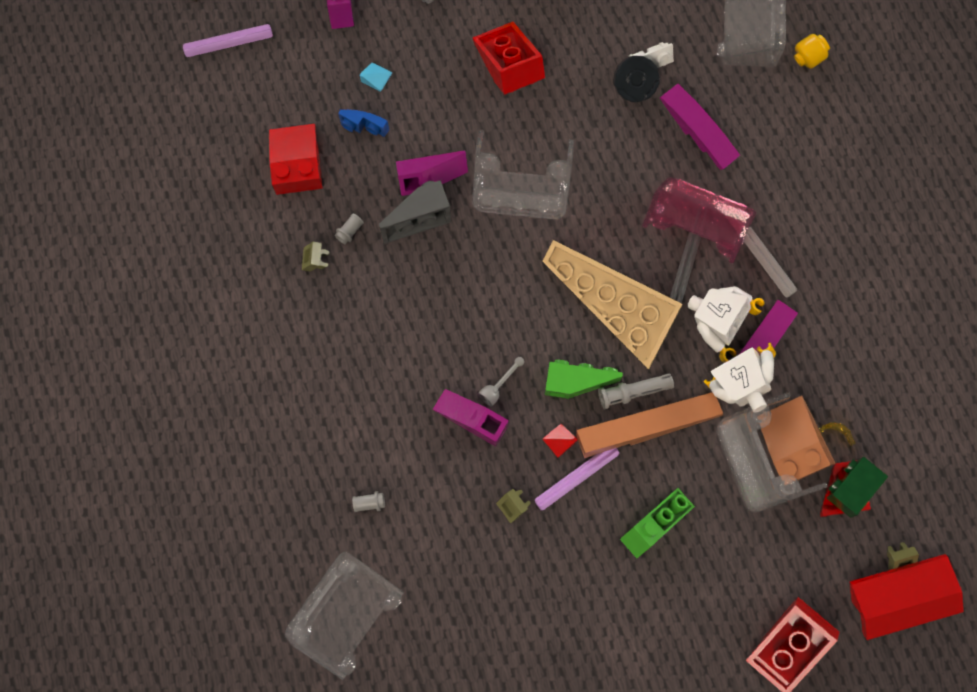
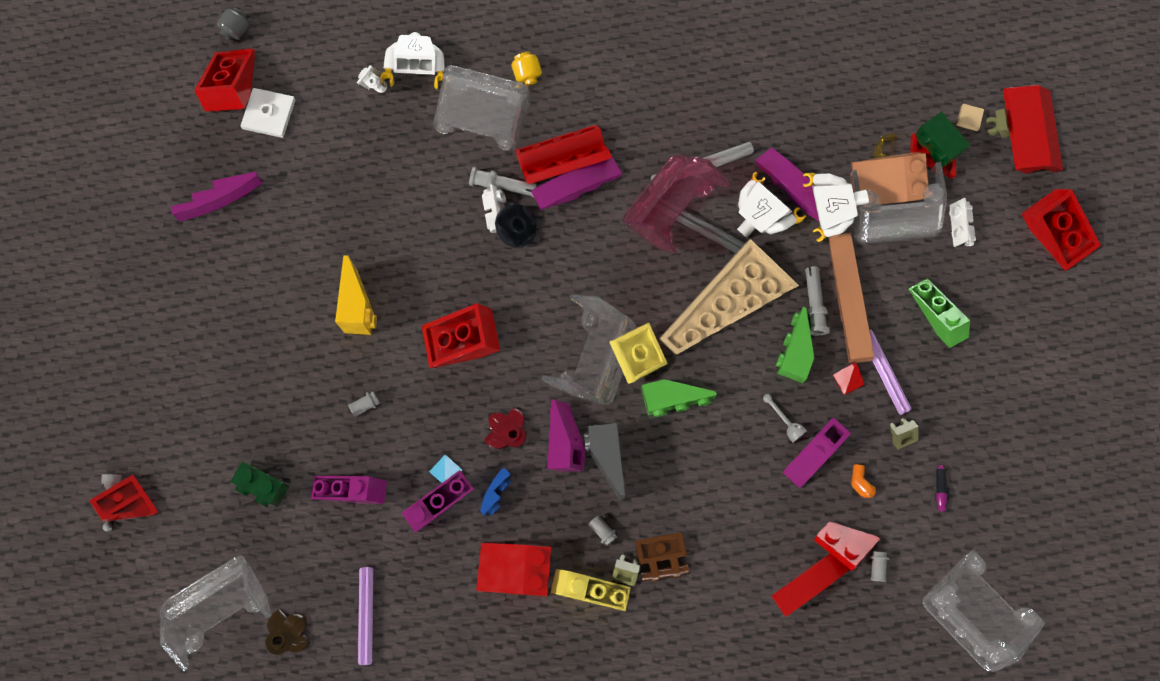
camera: 75 degrees left, 0 degrees up
(288, 229) = (590, 589): none -> light yellow slope
(340, 69) = (437, 501): none -> magenta slope
(341, 284) = (660, 549): none -> reddish brown plate
(342, 438) = (809, 584): none -> red slope
(384, 464) = (846, 543): none -> wing
(427, 117) = (503, 427): none -> dark red plate
(450, 469) = (860, 484): none -> orange arm
(464, 556) = (942, 490): none -> piece
(495, 258) = (670, 395): none -> bright green slope
(533, 221) = (638, 353): none -> light yellow plate
(680, 48) = (485, 179): none -> light grey pin
(727, 106) = (562, 154): none -> red slope
(779, 530) = (961, 216): none -> white hinge
(900, 524) = (970, 117): none -> tan tile

